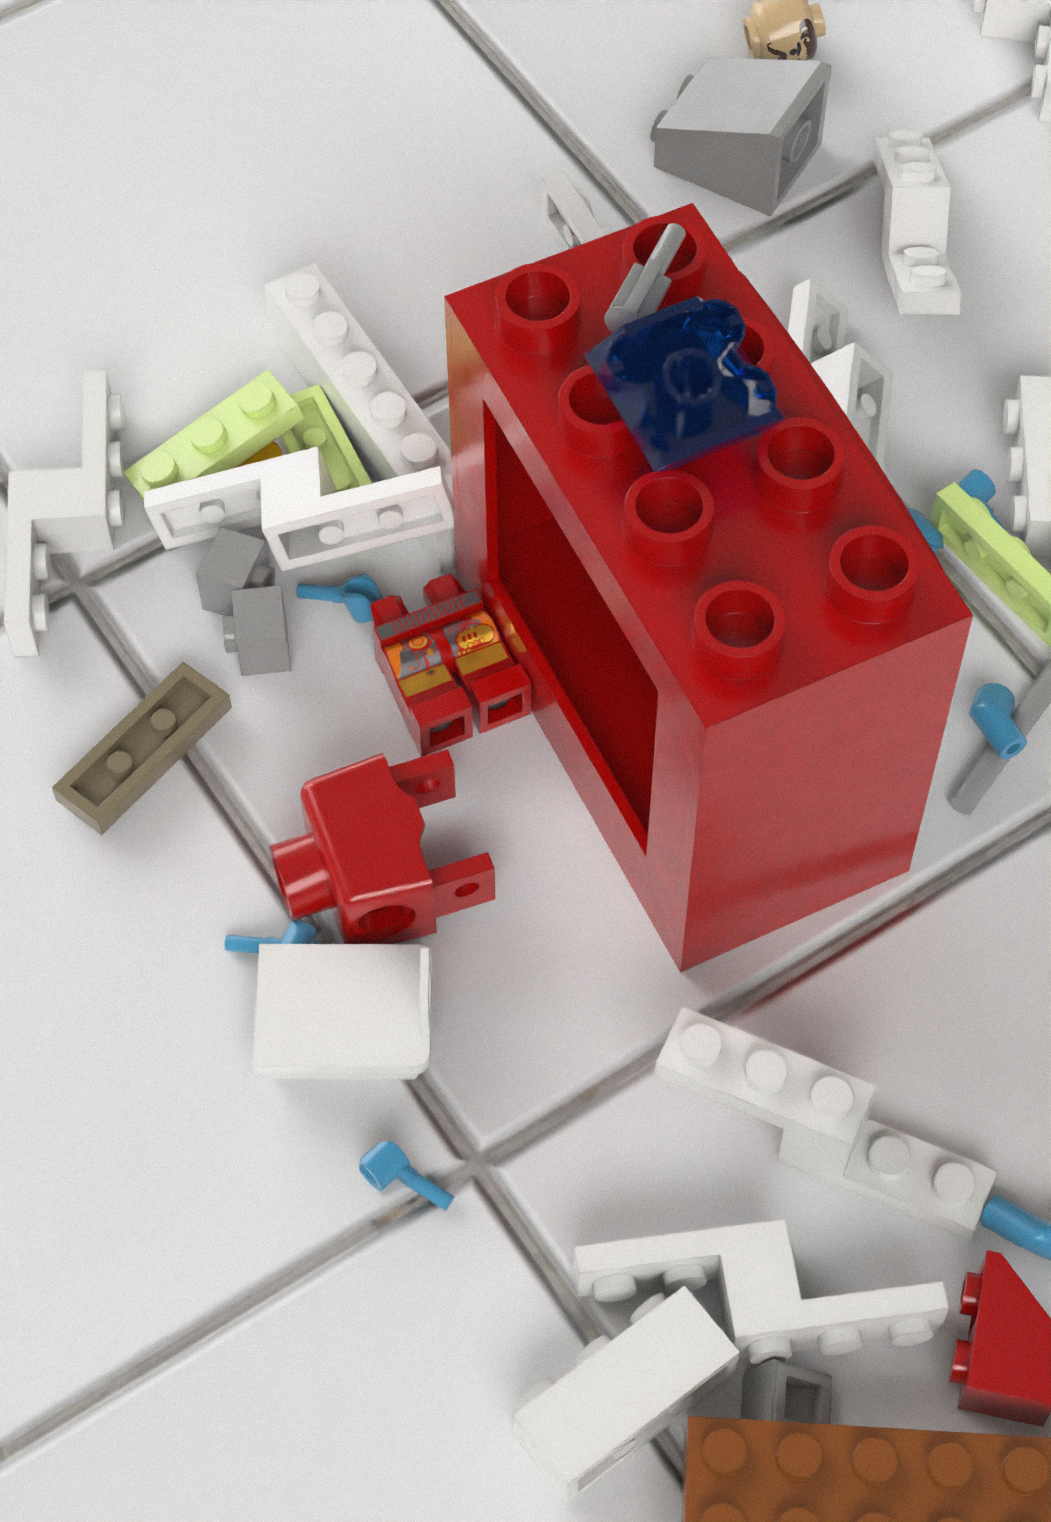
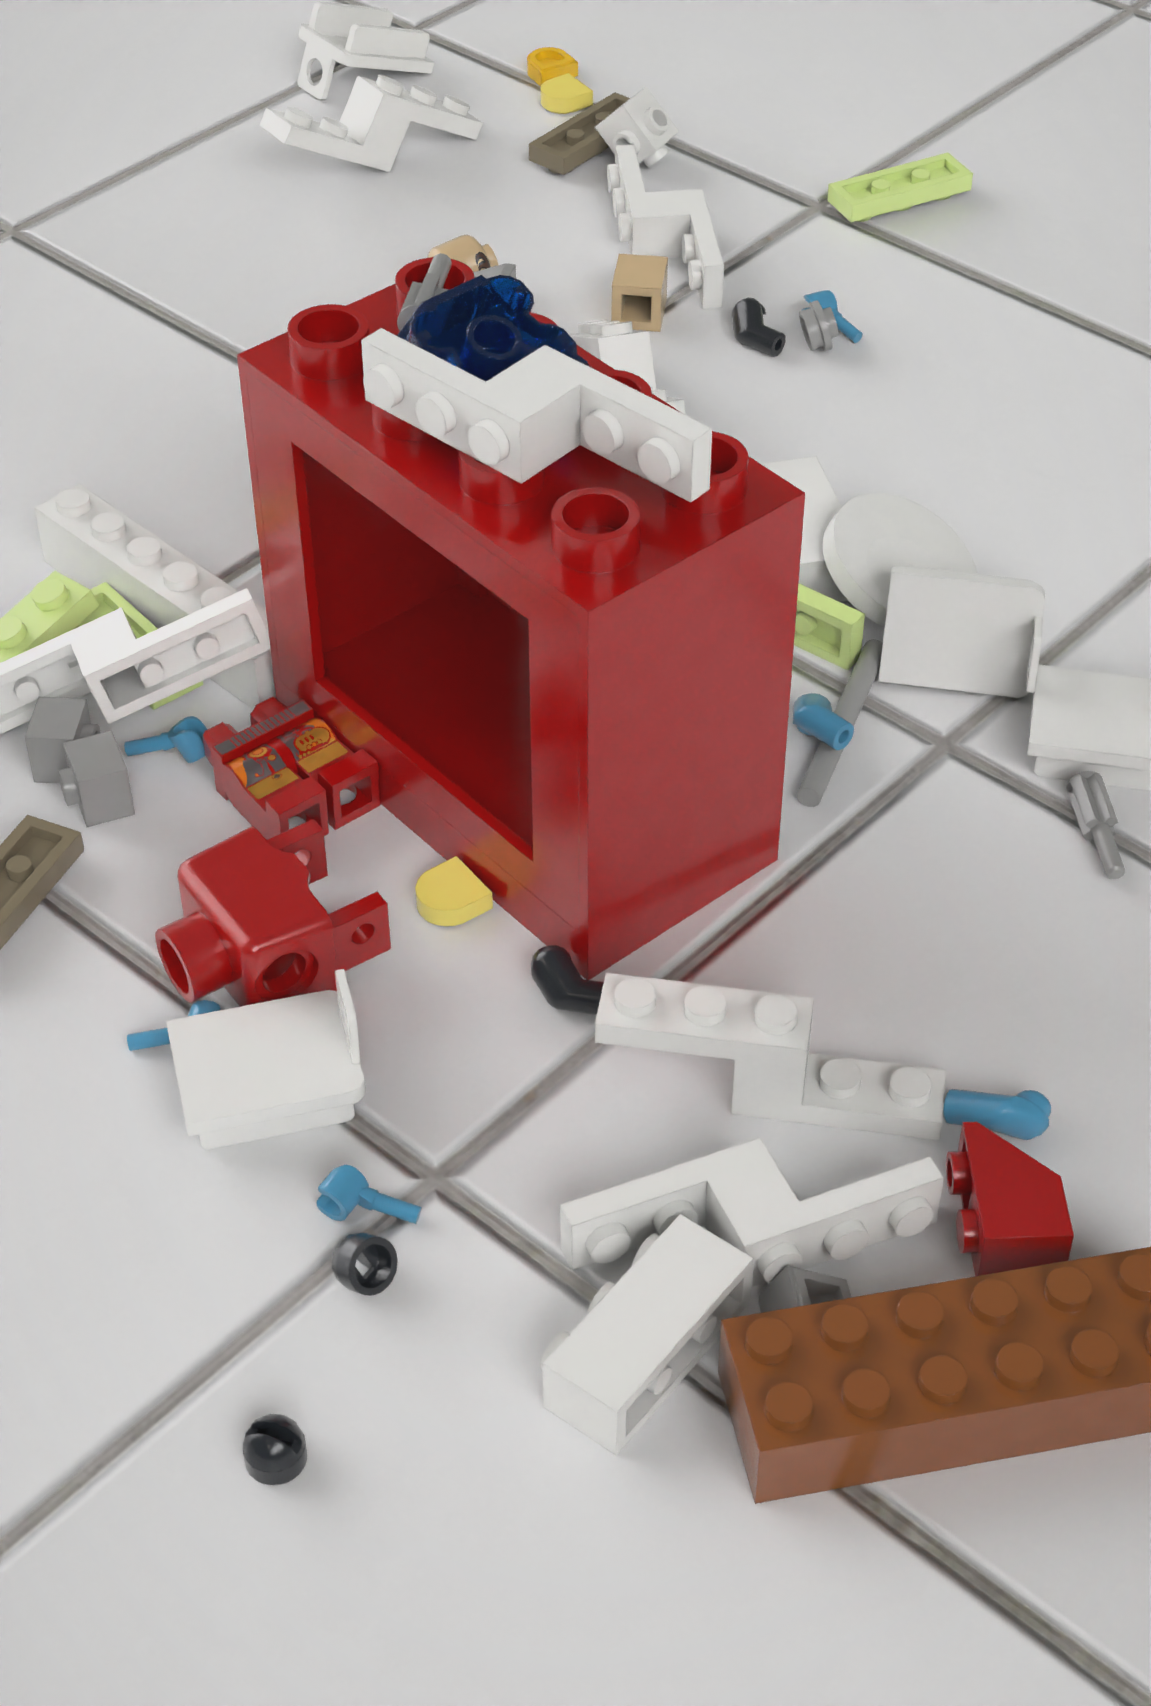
camera: 15 degrees left, 15 degrees down
(252, 1434) = (271, 1459): none -> black hinge
(395, 1261) = (371, 1251): none -> black hinge
(571, 843) = (451, 894): none -> light yellow tile
(651, 976) = (562, 982): none -> black arm
(708, 488) = (537, 414): none -> white bracket
(970, 95) = (640, 291): none -> tan brick

